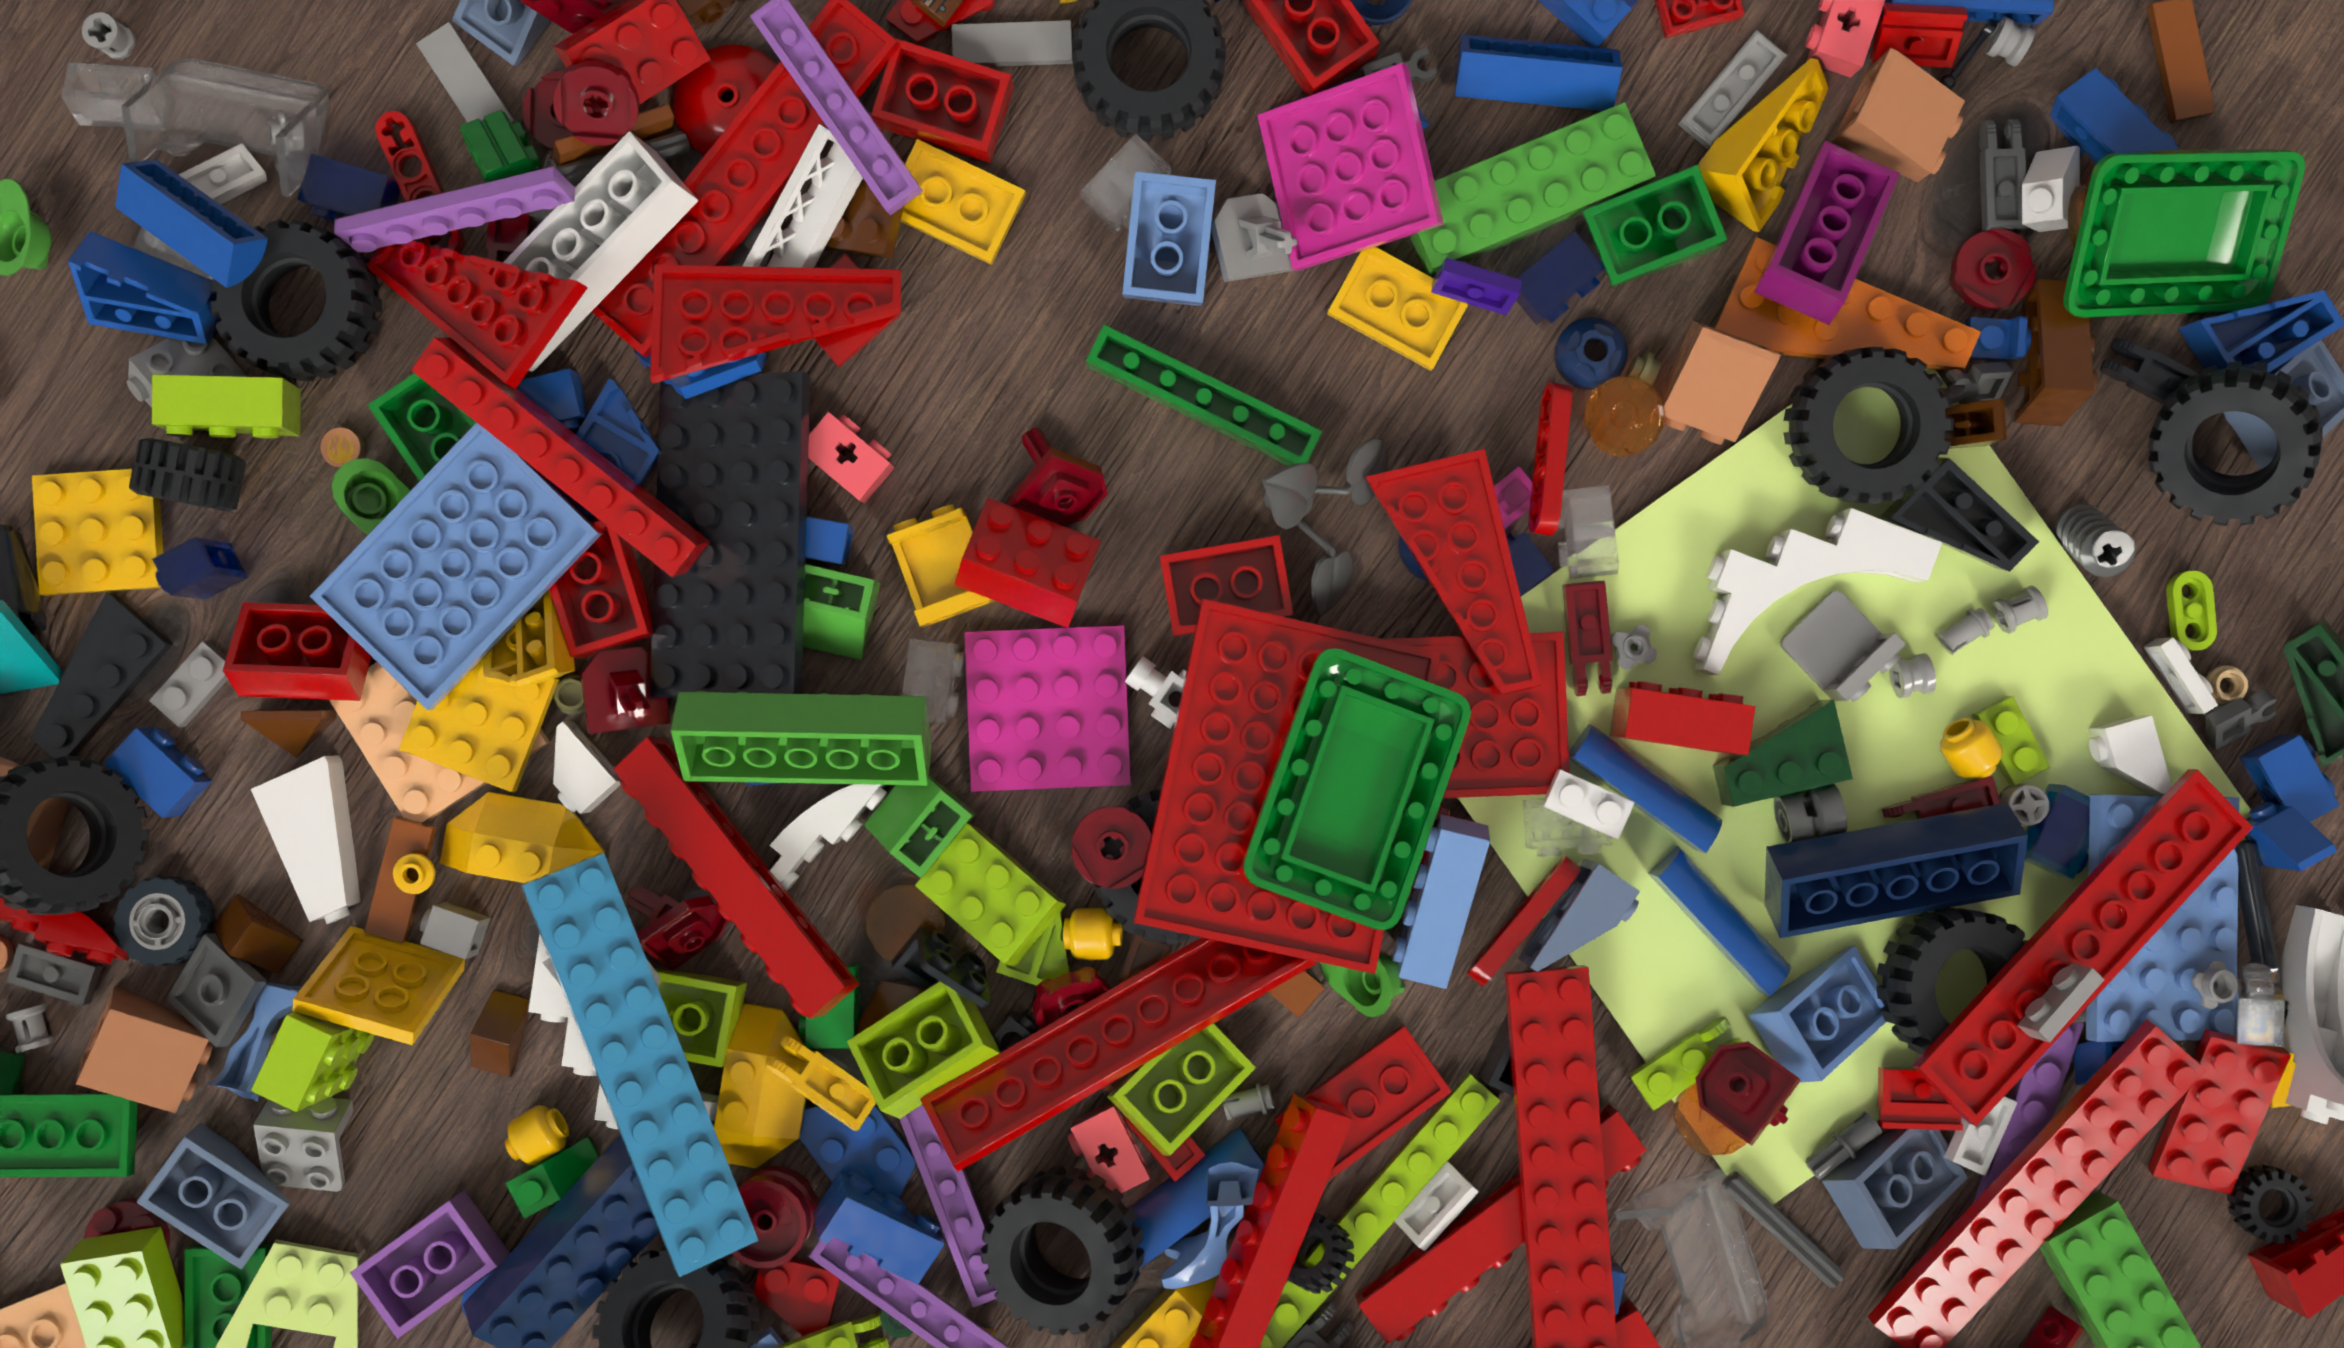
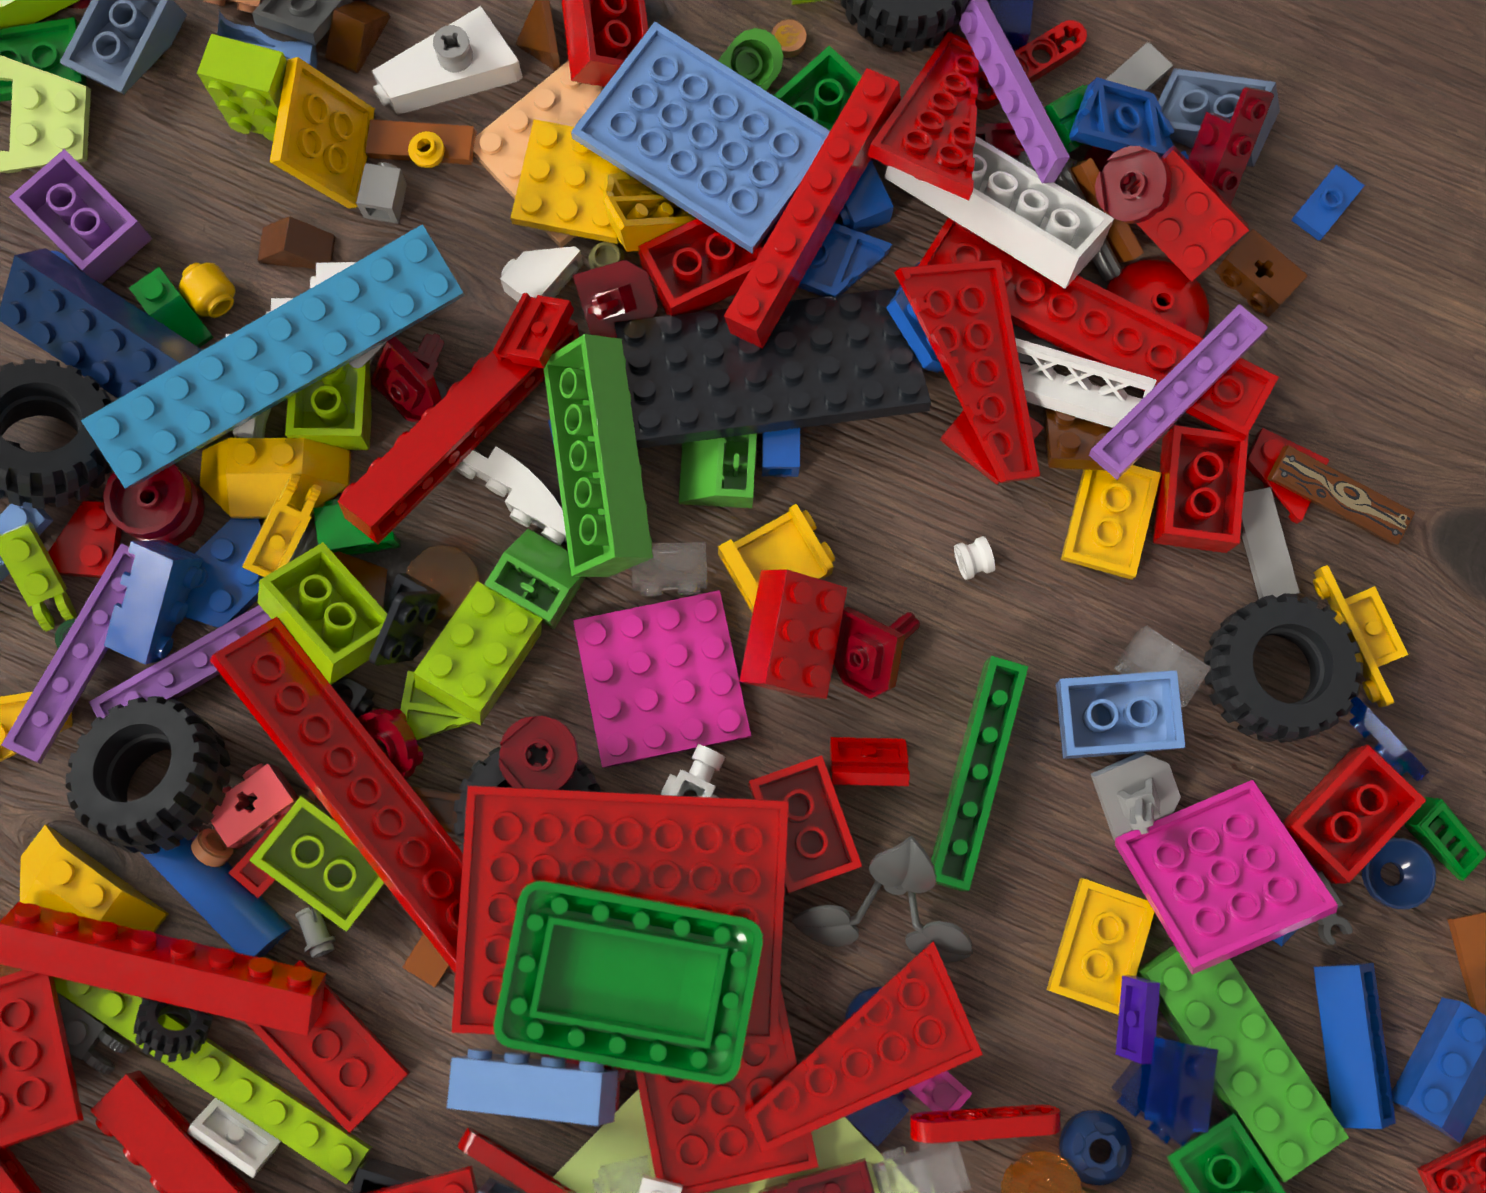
camera: 75 degrees right, 10 degrees down
(303, 1145) = (176, 97): light grey bracket -> none
(310, 825) = (455, 58): none -> light grey wheel
(513, 94) = (1121, 117): none -> blue wing
(516, 838) = (470, 233): yellow wedge -> none
(649, 784) = (533, 330): none -> red plate
(863, 475) = (852, 479): coral brick -> none
(975, 356) = (974, 558): none -> white wheel
(1091, 934) = (455, 753): yellow head -> none
(1146, 1197) = (210, 848): none -> nougat tile
(1172, 508) = (869, 761): none -> red plate
(1203, 1255) = (159, 910): medium blue animal -> none
(1364, 990) = (434, 1030): bright green piece -> none
(1547, 258) = (1181, 1085): none -> clear blue brick

